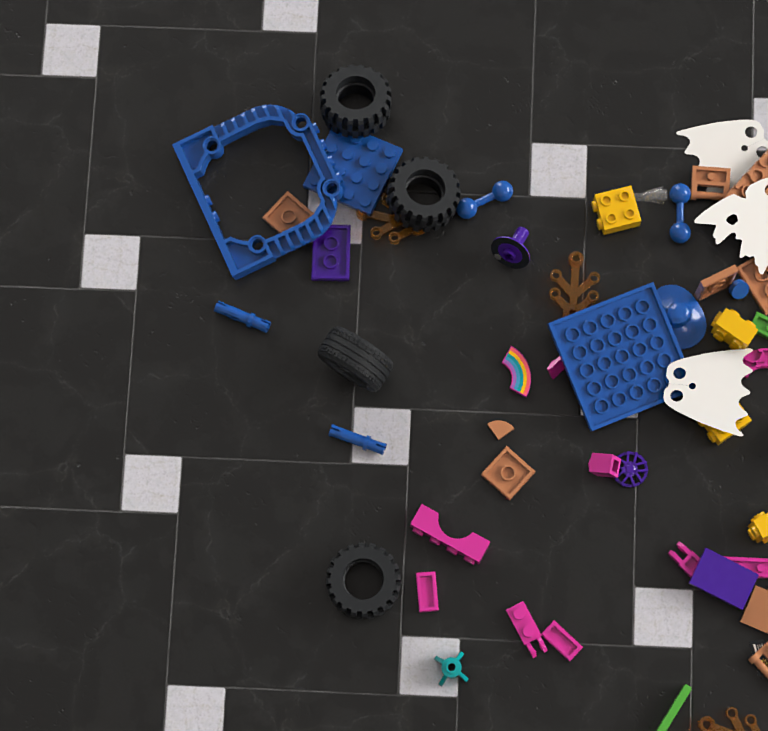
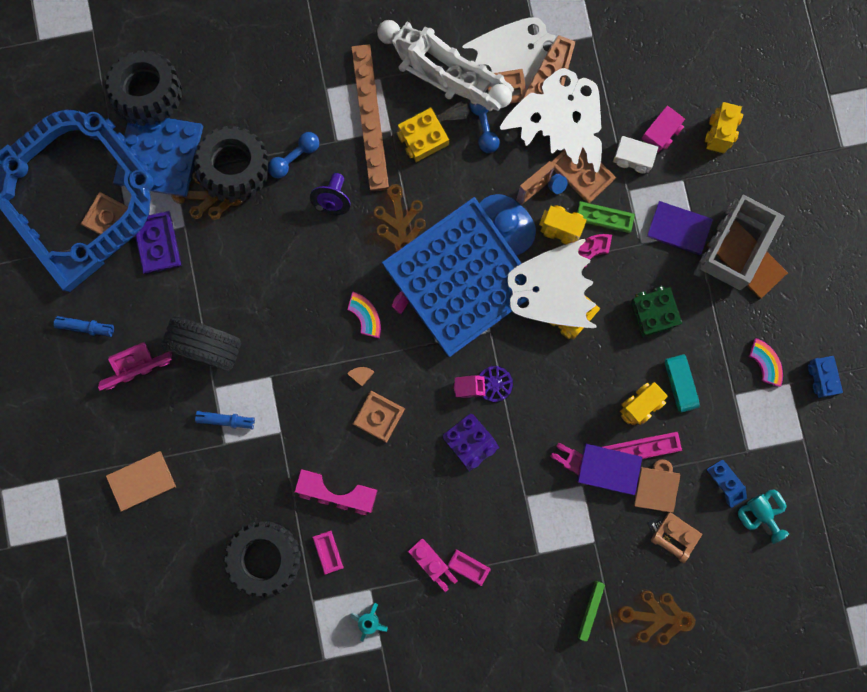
camera: 20 degrees left, 5 degrees up
(262, 478) = (141, 481): none -> nougat tile
(281, 362) = (132, 362): none -> dark pink bracket
(568, 181) = (370, 117): none -> nougat plate
(593, 519) = (470, 442): none -> dark purple bracket
(668, 163) = (461, 78): none -> white piece

